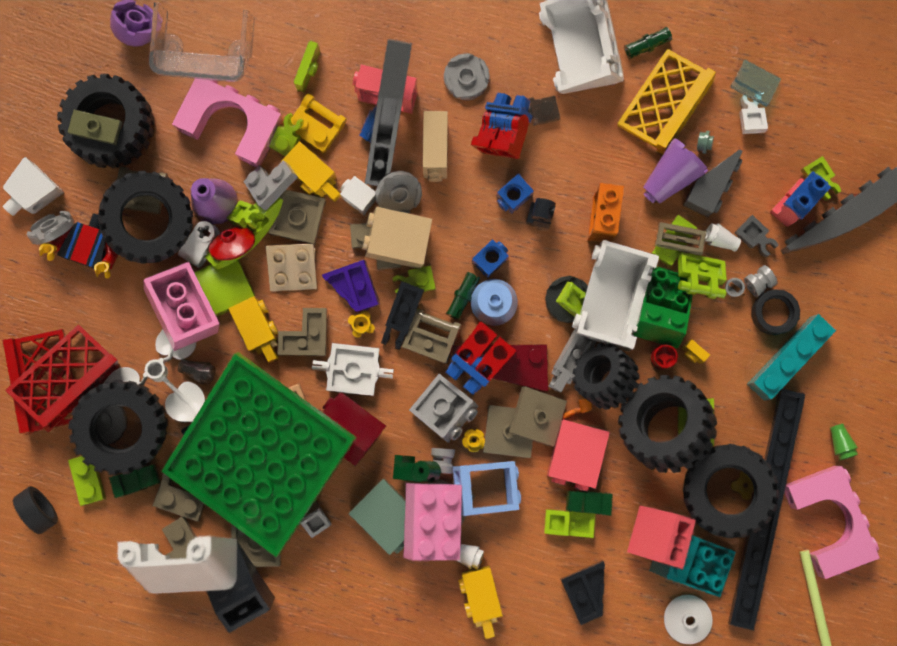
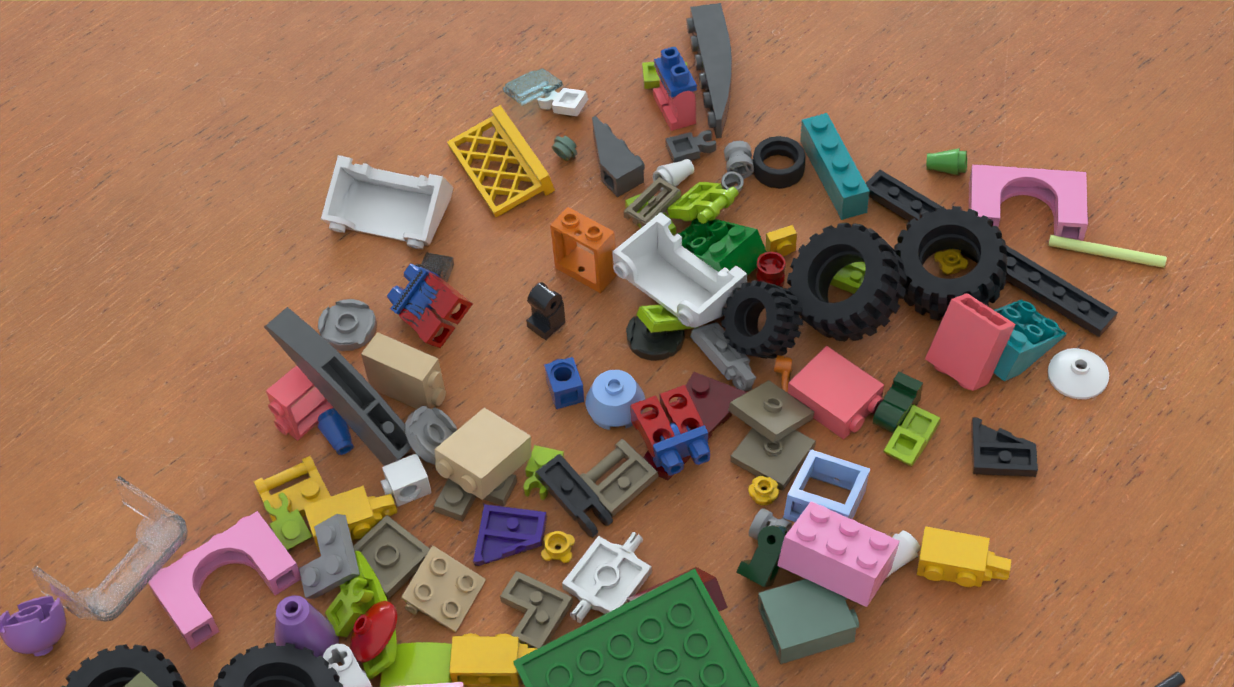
camera: 60 degrees left, 30 degrees down
(307, 67) = (223, 467): lime plate -> none
(444, 408) = (709, 499): light grey plate -> none
(462, 296) = (589, 428): dark green pin -> none
(521, 187) = (507, 330): blue brick -> none
(648, 43) = (429, 152): dark green pin -> none
(673, 172) = (578, 177): medium lavender cone -> none

